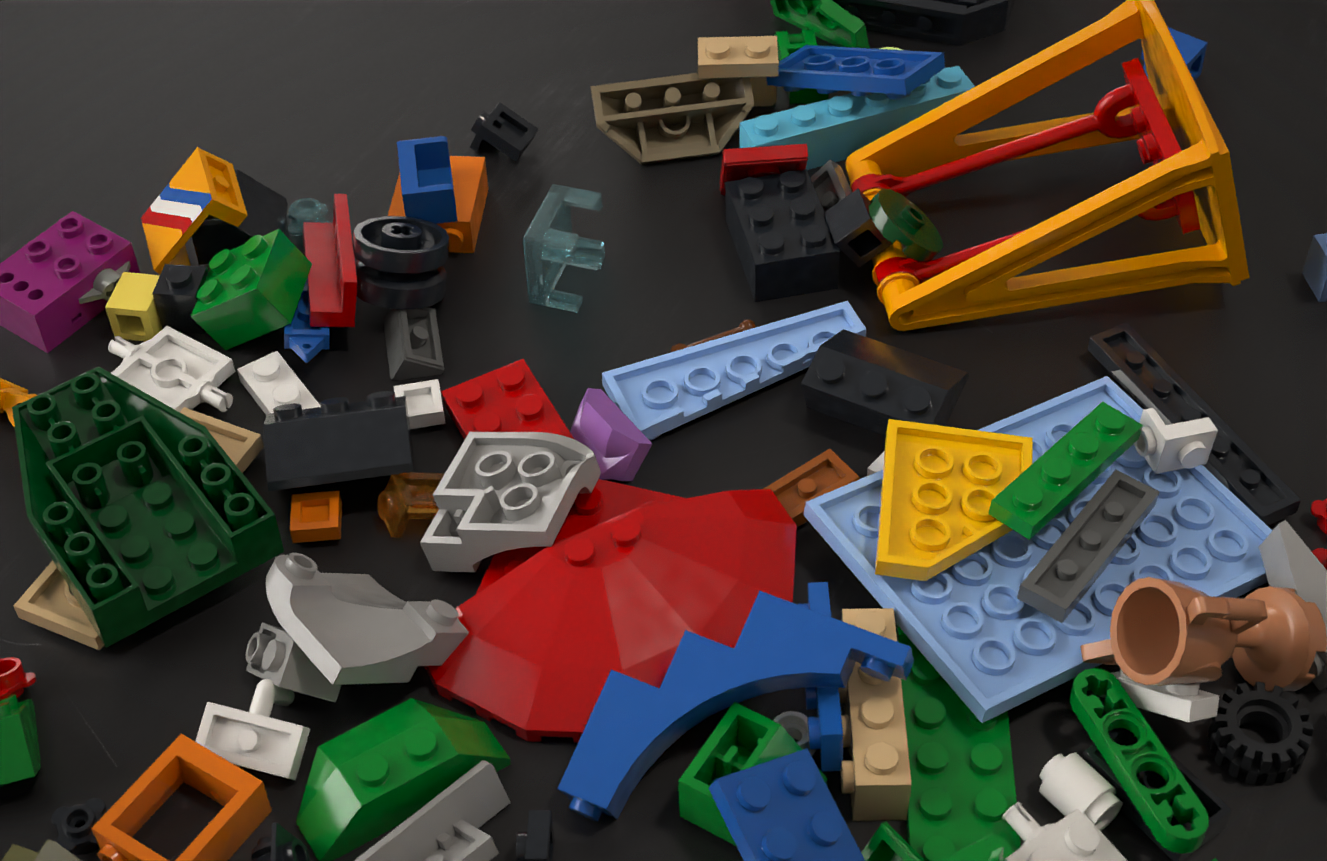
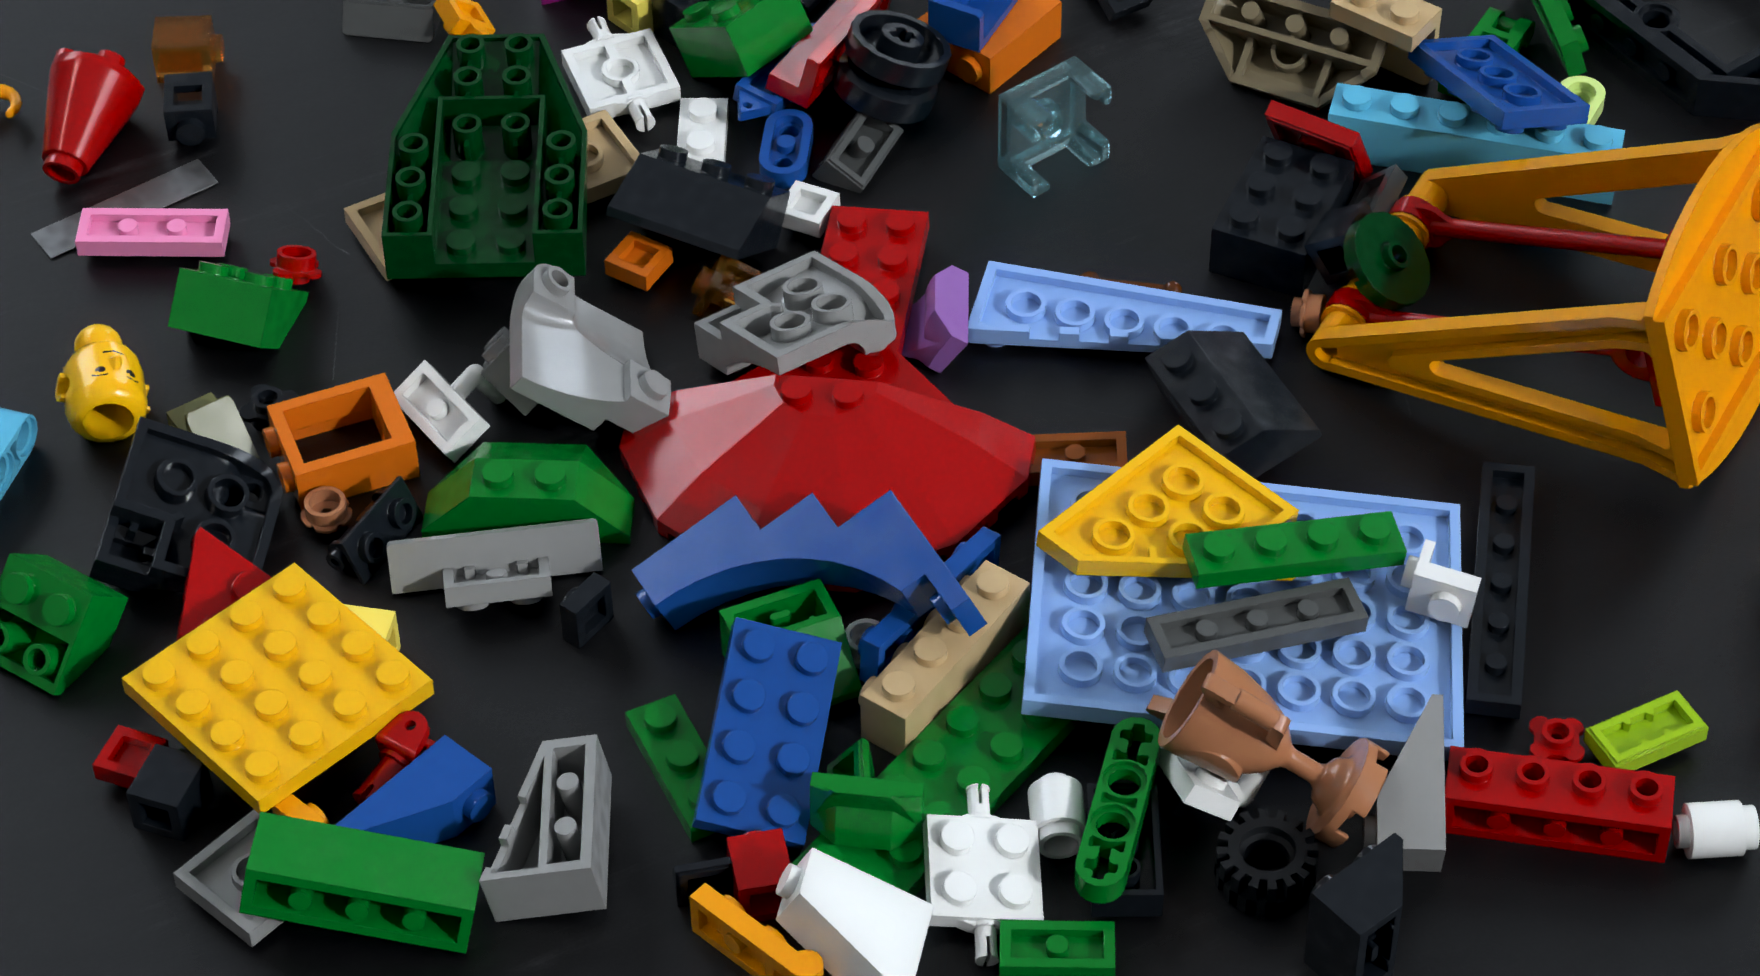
camera: 35 degrees right, 0 degrees up
(358, 365) = (786, 147): none -> blue plate
(862, 294) = (1307, 312): none -> nougat plate

